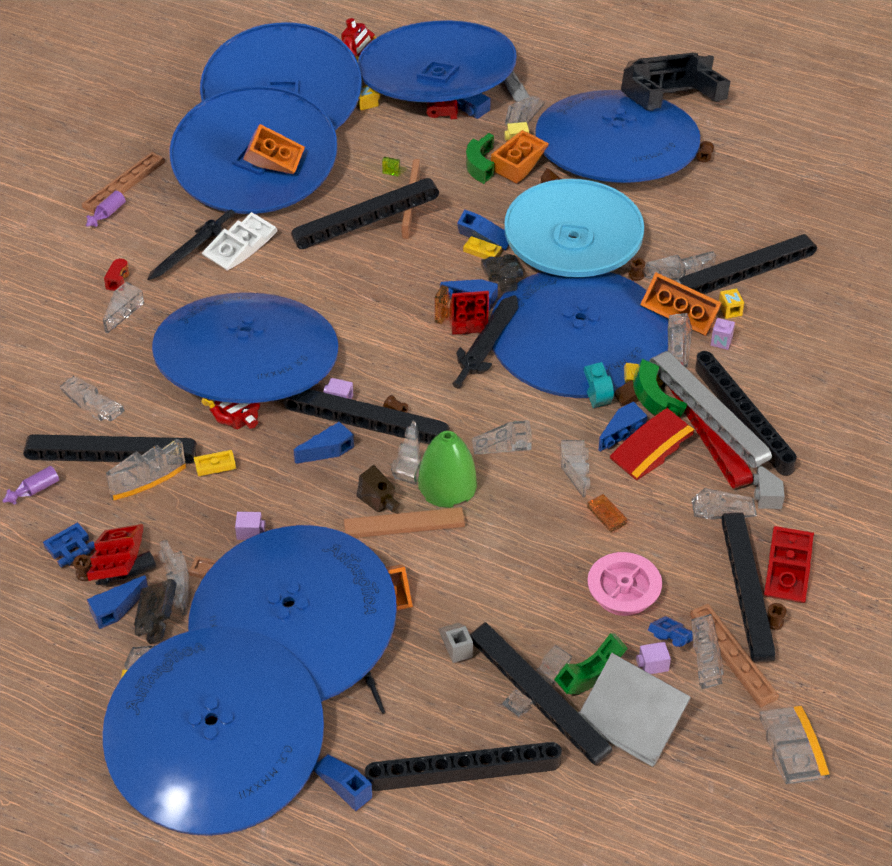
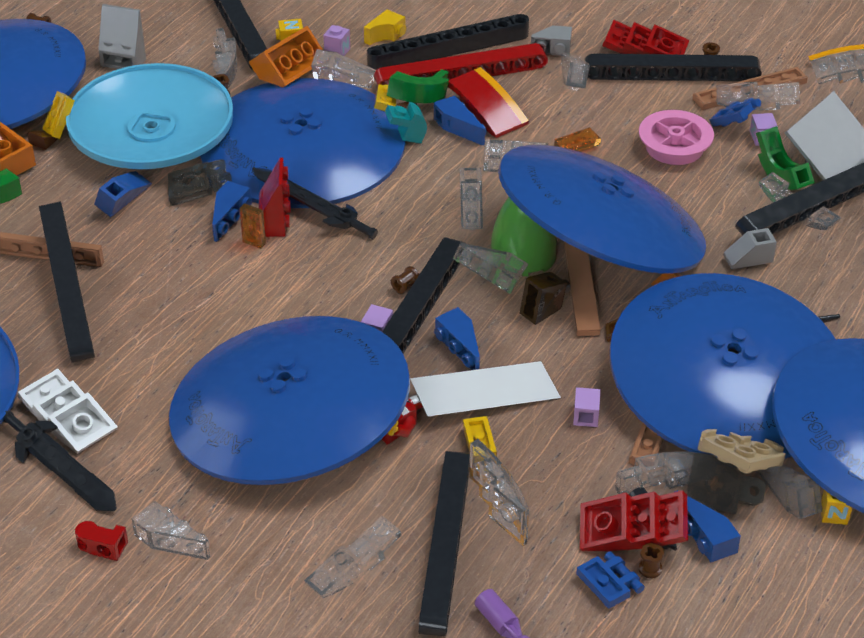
camera: 85 degrees left, 5 degrees down
(173, 607) = (742, 451): none -> tan plate
(270, 464) = (484, 388): none -> white sticker
(445, 544) = (602, 209): none -> blue dish
(481, 248) = (146, 200): yellow plate -> none
(571, 174) = (57, 115): none -> yellow plate
(673, 197) = (121, 37): none -> light grey slope
(711, 410) = (457, 50): light grey beam -> none
(758, 364) = (385, 27): none -> yellow arch

